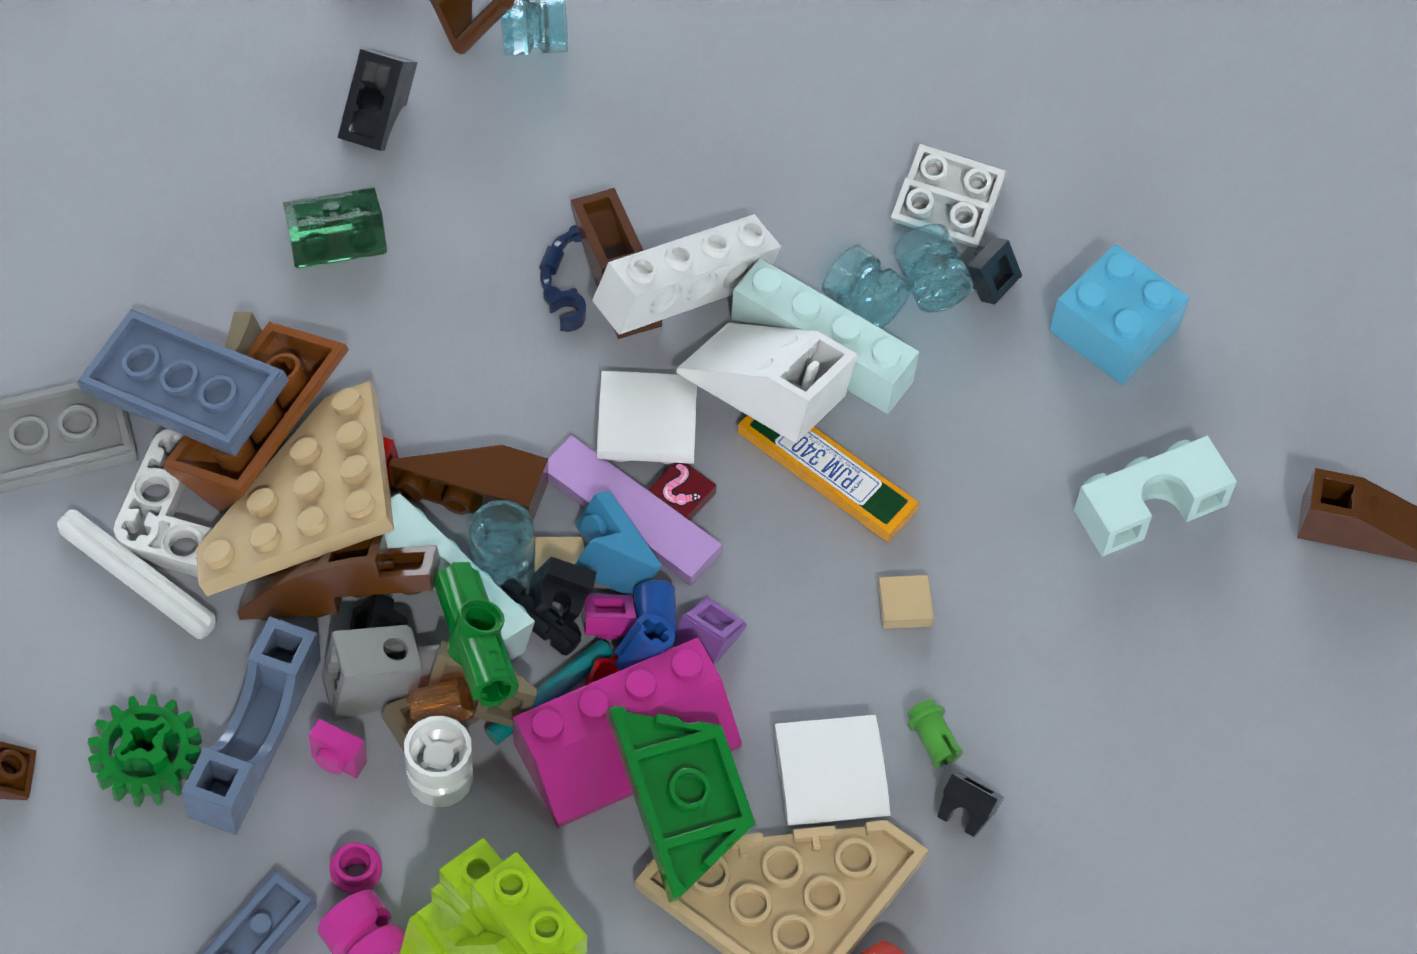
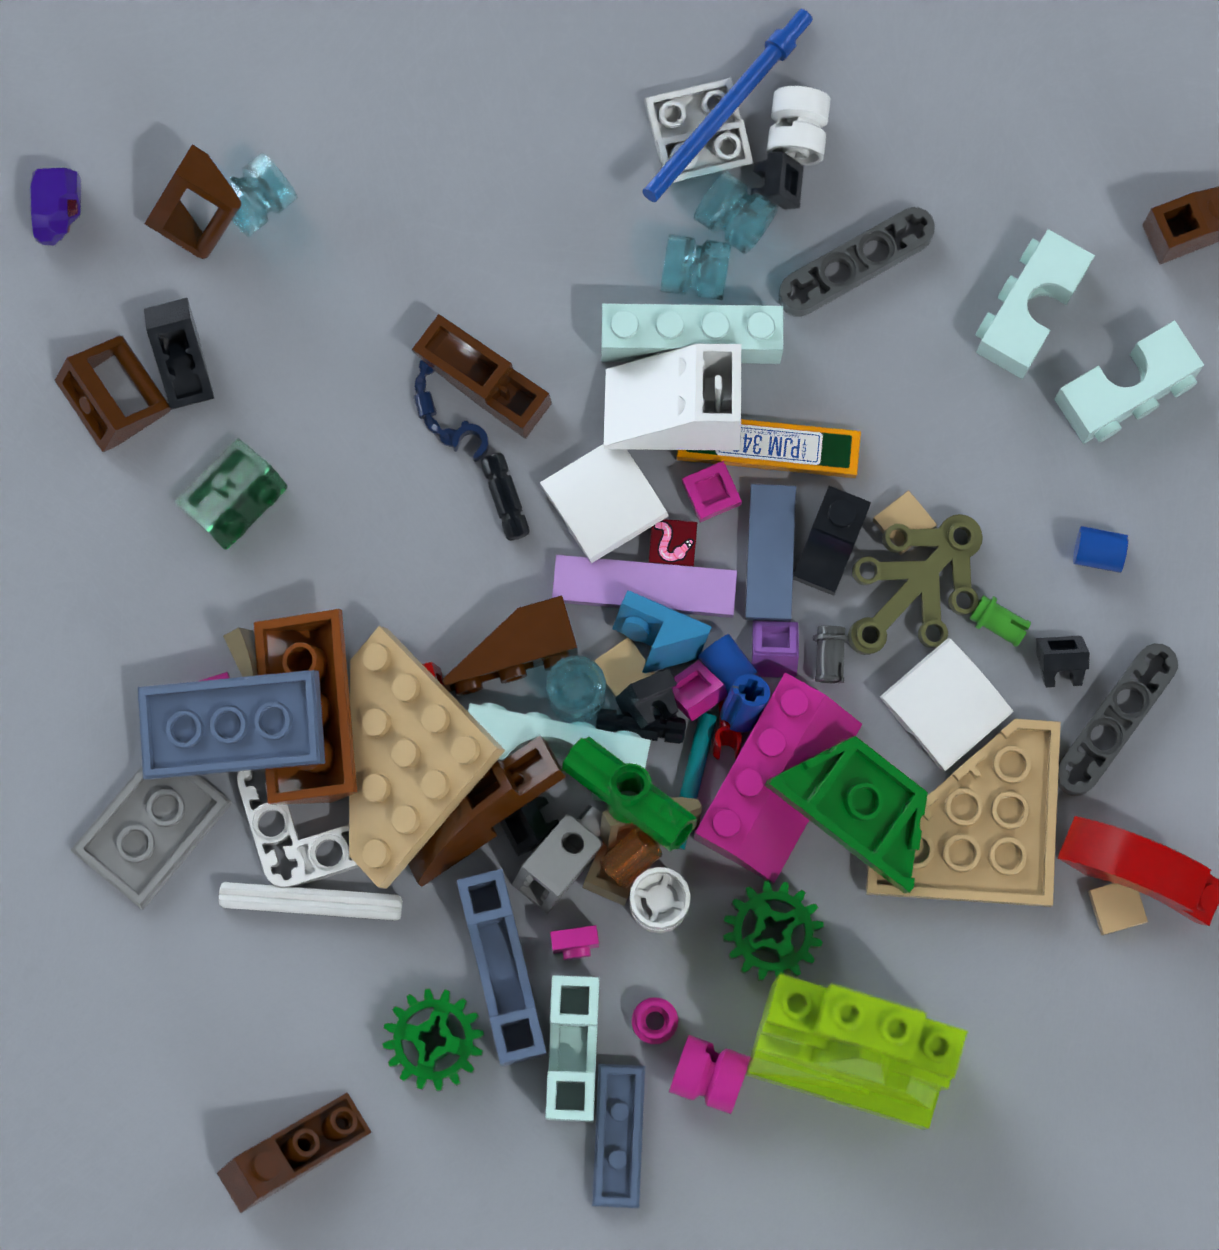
camera: 30 degrees left, 20 degrees up
(276, 107) = (94, 402): none -> reddish brown tile
(285, 808) = (572, 1048): none -> light aqua arch
(549, 859) = (761, 913): none -> green gear
(563, 367) = (505, 496): none -> black axle
(682, 273) = (554, 358): white brick -> none
(747, 469) = (711, 491): none -> dark pink plate
(756, 662) = (830, 654): none -> dark grey pin
(764, 551) = (770, 553): none -> sand blue tile
(828, 570) = (831, 540): none -> black arch
(884, 651) = (921, 578): none -> olive plant
(989, 895) = (1113, 717): none -> dark grey beam
(1015, 380) = (859, 265): none -> dark grey beam
(1042, 234) = (799, 119): none -> white wheel
(1064, 174) = (777, 49): none -> blue bar
(1073, 731) = (1100, 549): none -> blue piece
(1118, 314) = (907, 156): medium azure brick -> none
(1159, 615) = (1098, 406): none -> light aqua arch

